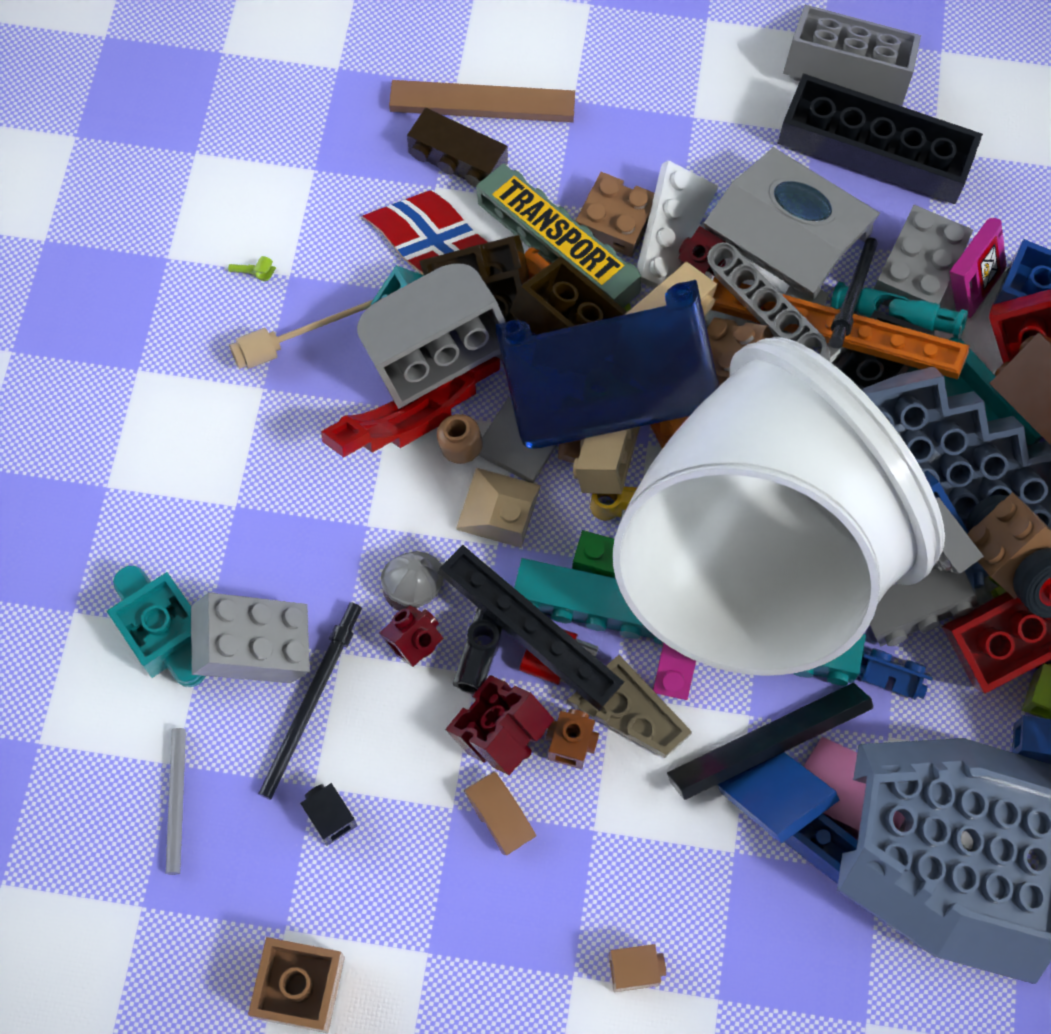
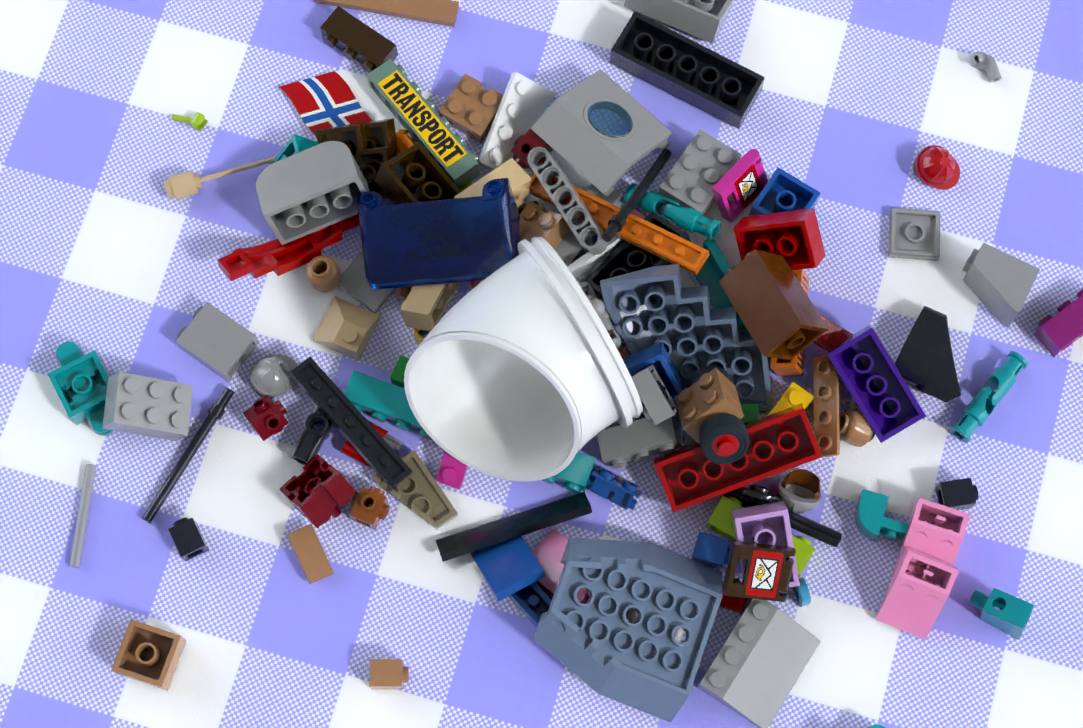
camera: 10 degrees right, 5 degrees up
(329, 543) = (217, 341): none -> light grey brick

